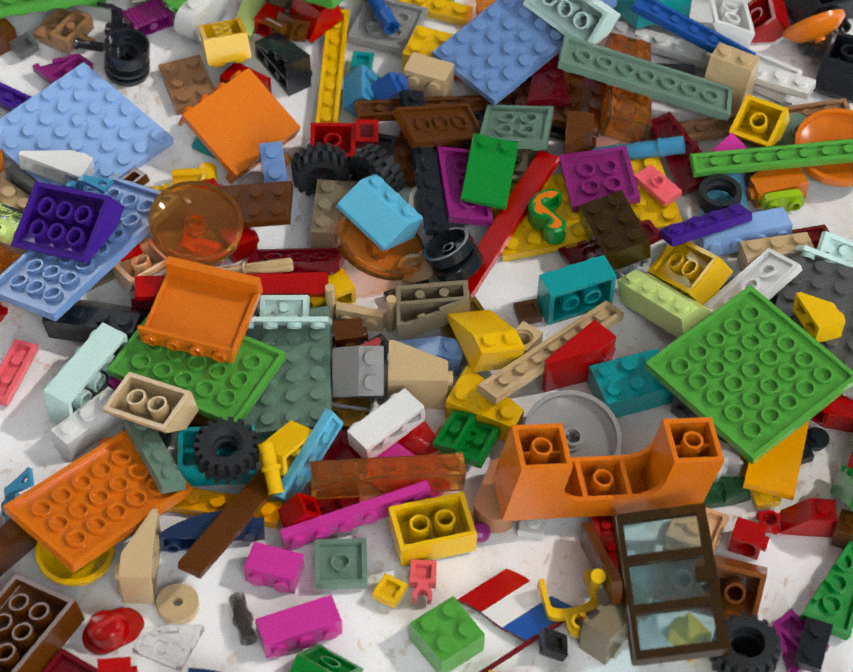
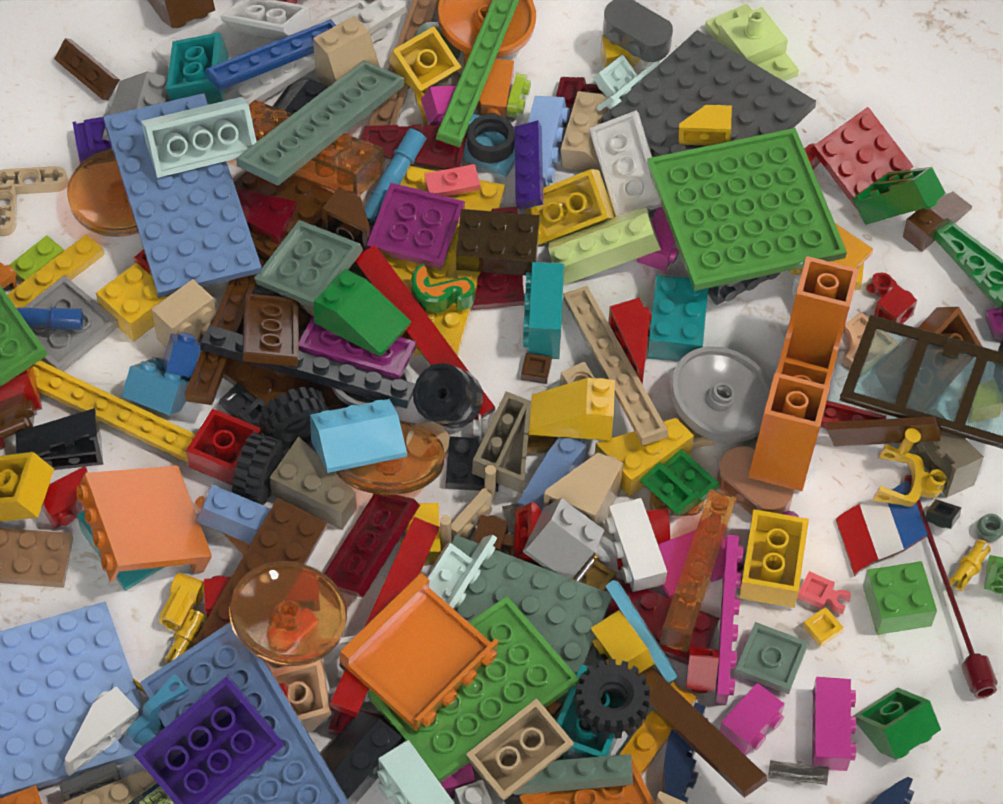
camera: 65 degrees left, 5 degrees up
(136, 176) = (148, 662): reddish brown plate -> none
(271, 266) = (373, 582): tan axle -> none
(271, 468) = (653, 666): yellow pin -> none
(364, 58) = (104, 371): teal plate -> none
(367, 132) = (231, 401): red brick -> none
(810, 518) = (895, 249): red slope -> none

